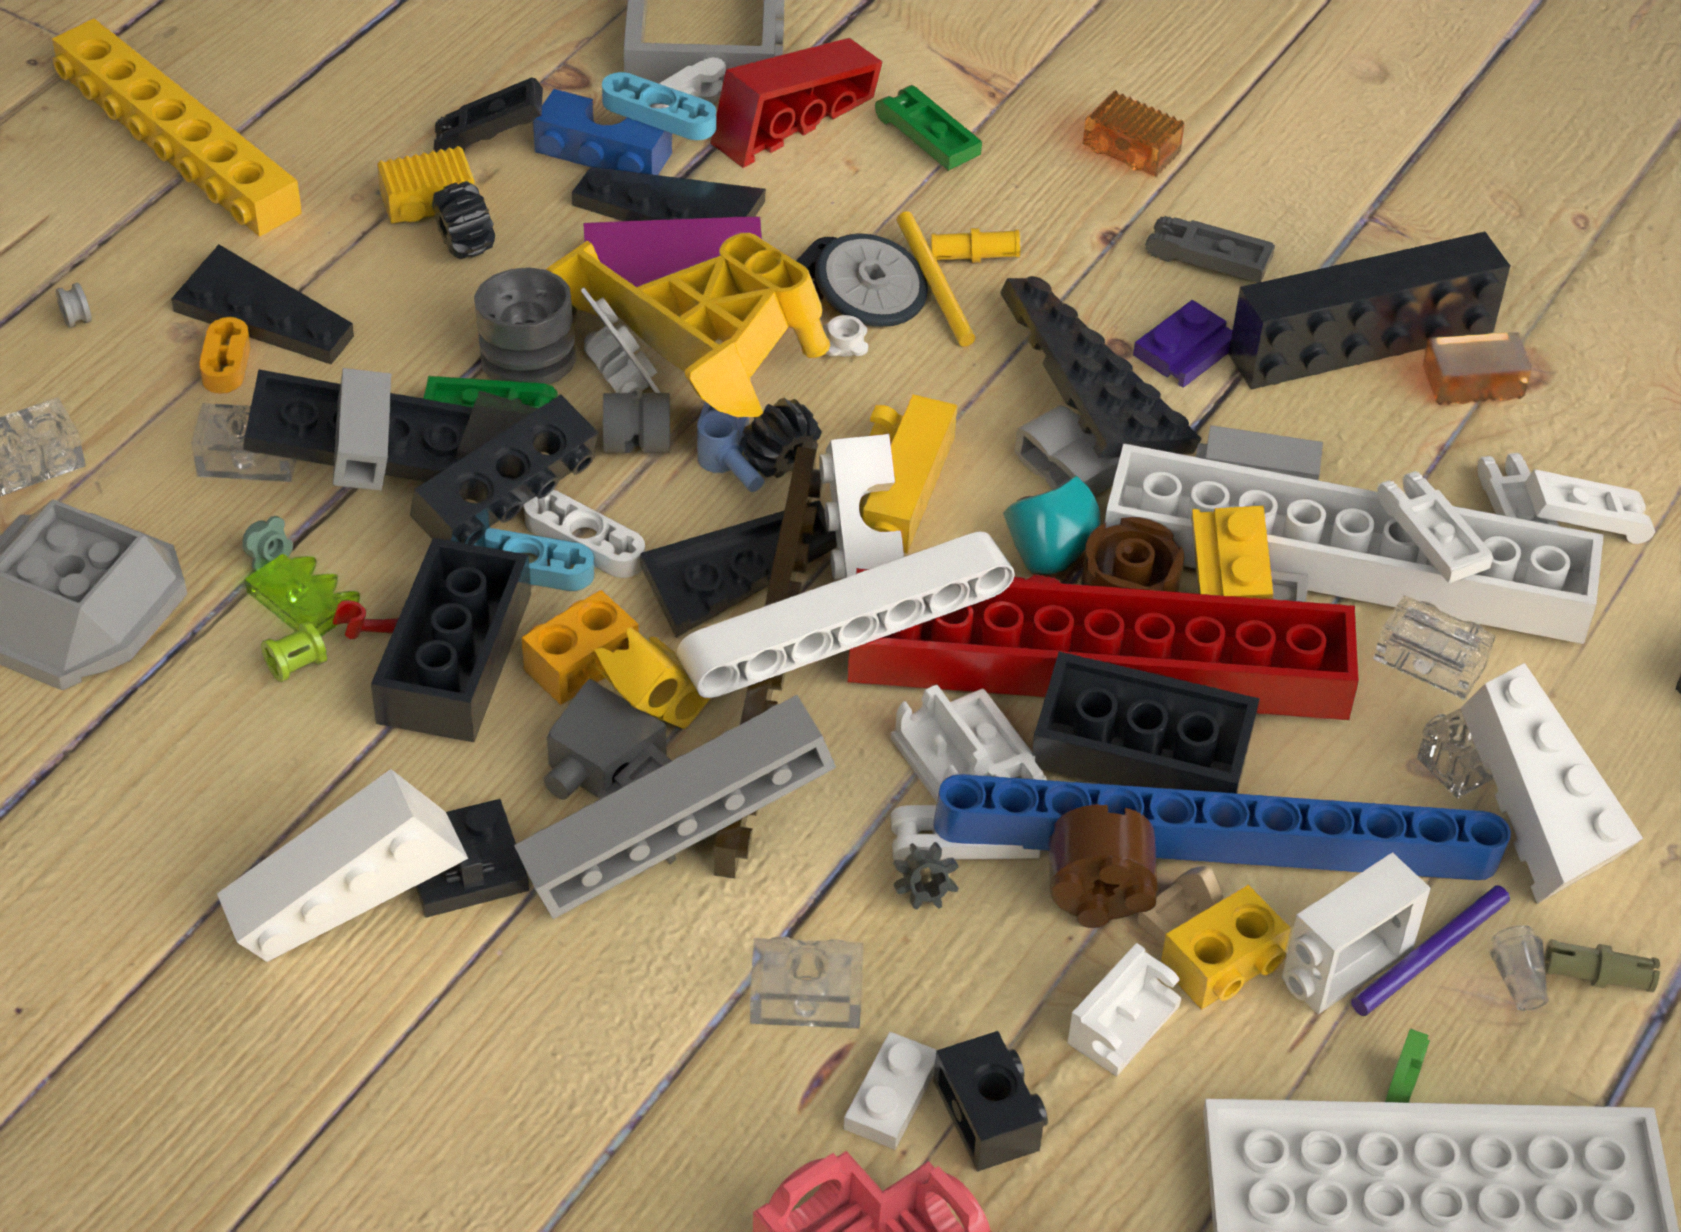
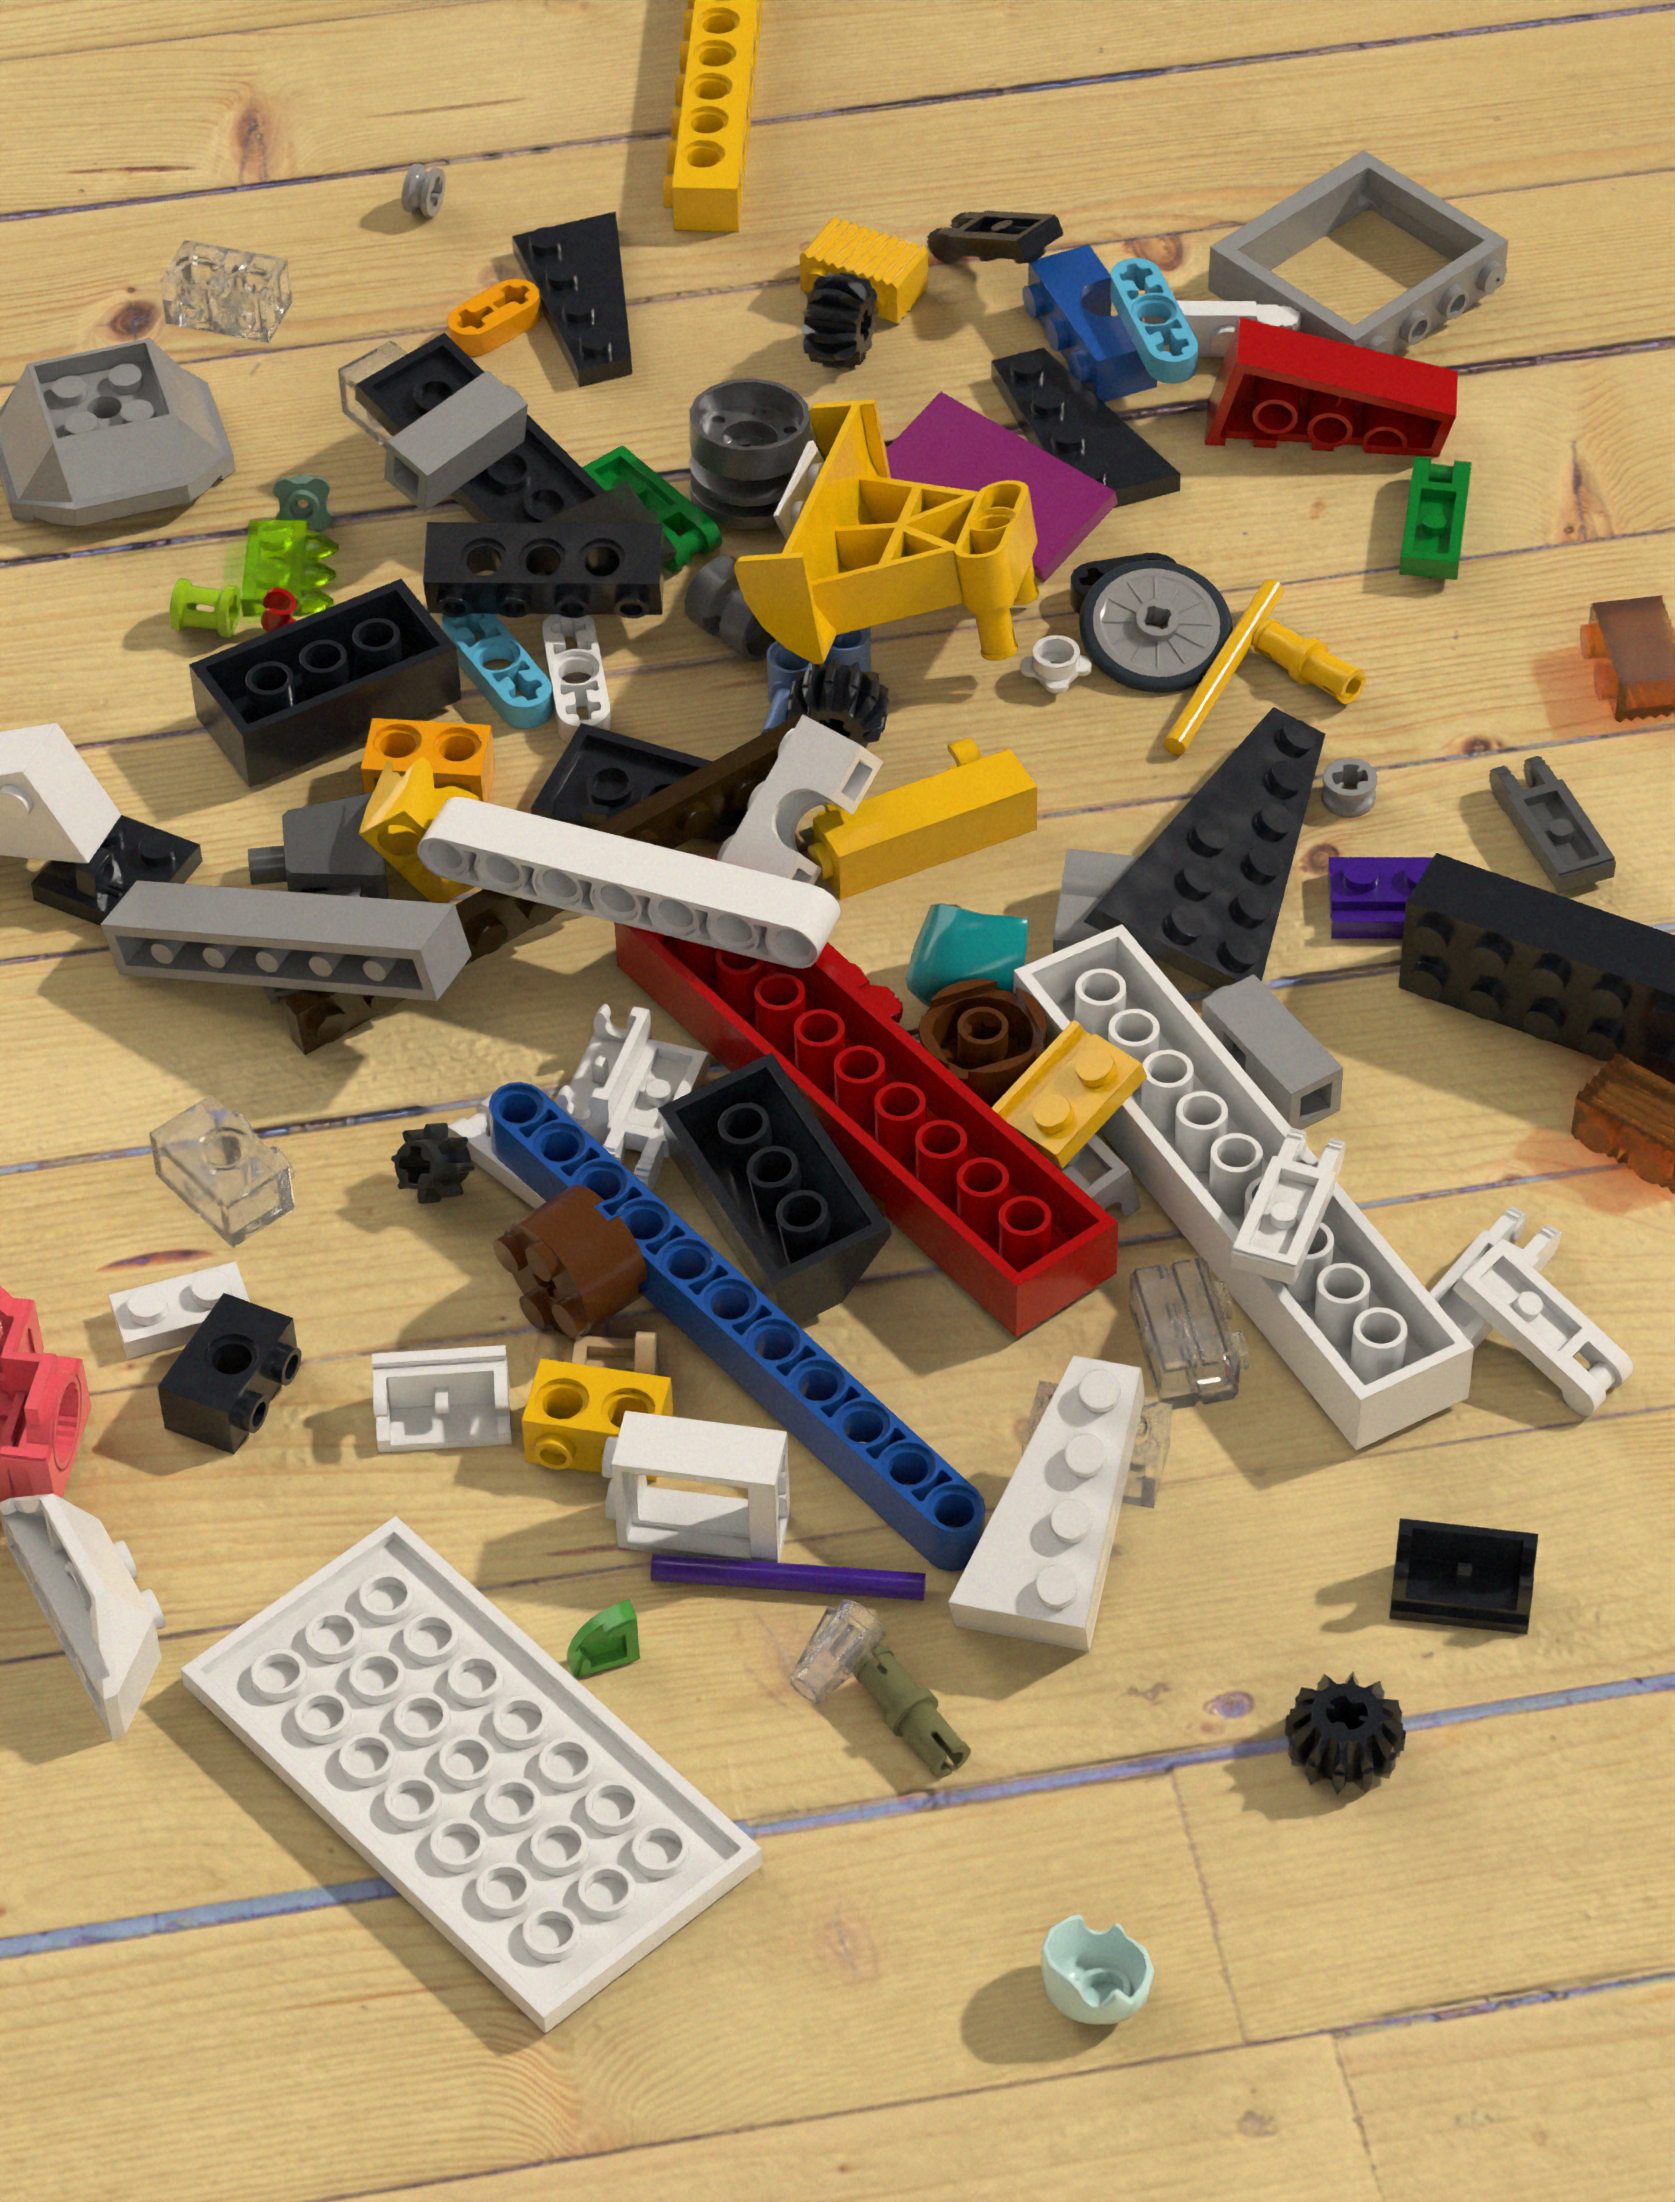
camera: 50 degrees right, 0 degrees up
(1087, 298) = (1346, 801): none -> light grey bush

